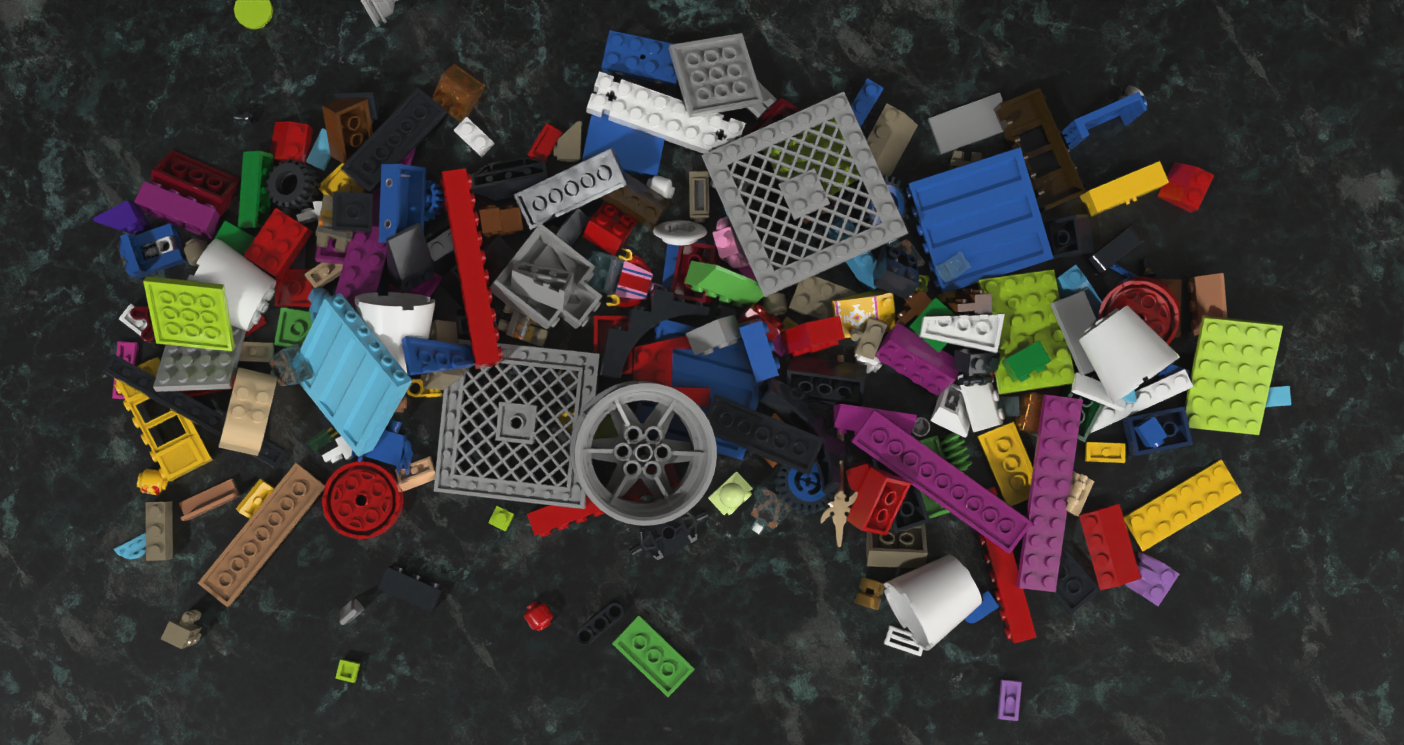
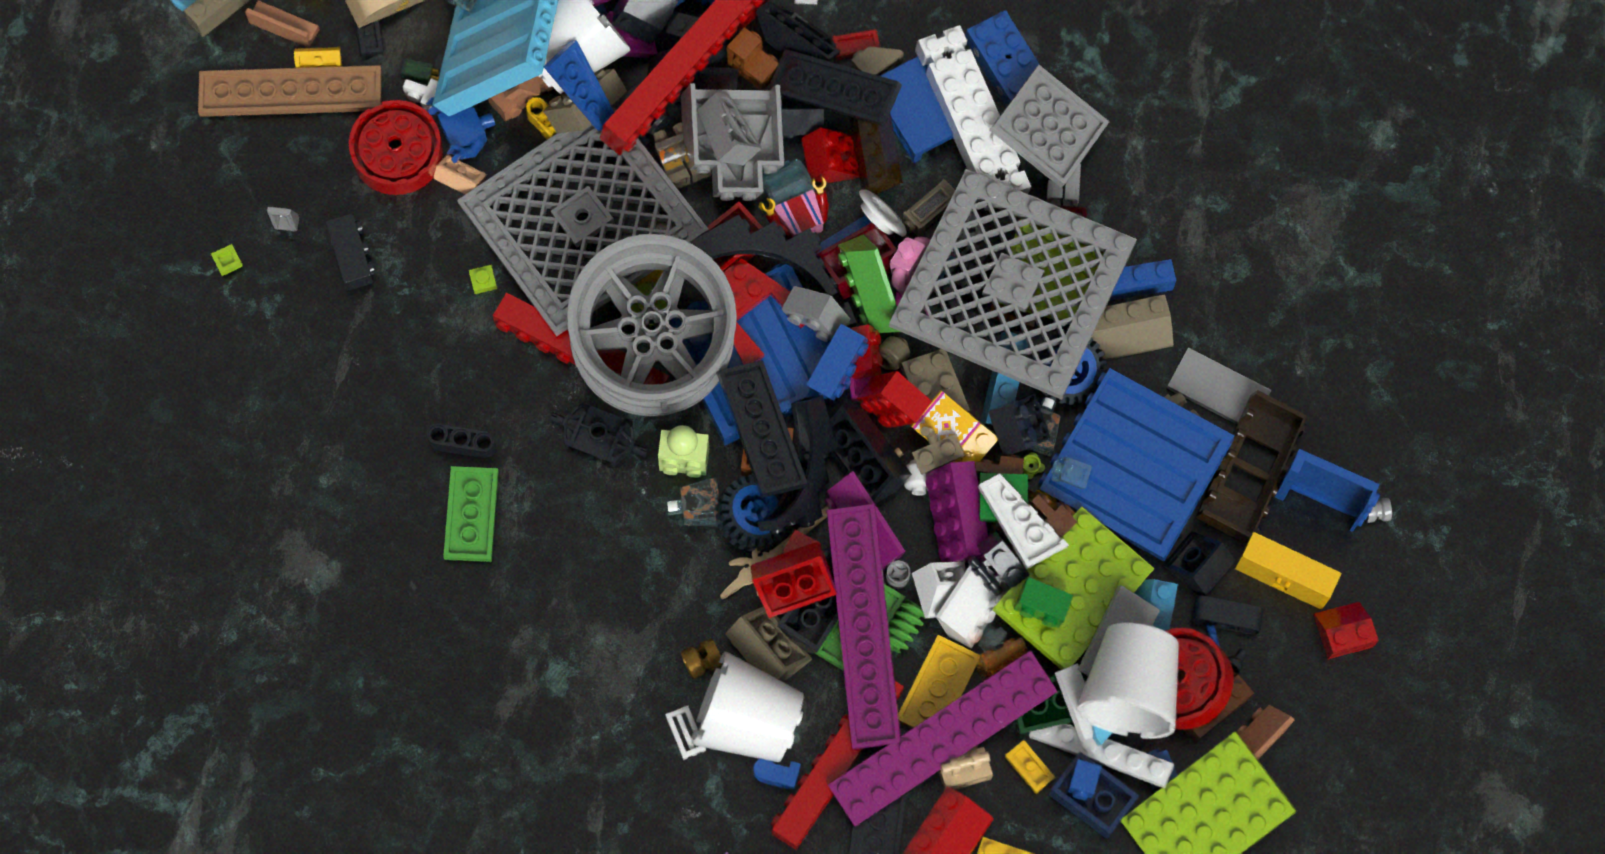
camera: 45 degrees right, 15 degrees down
(183, 631) = (146, 90): dark tan brick -> none
(538, 616) = (420, 381): red head -> none
(662, 186) = (909, 168): white head -> none

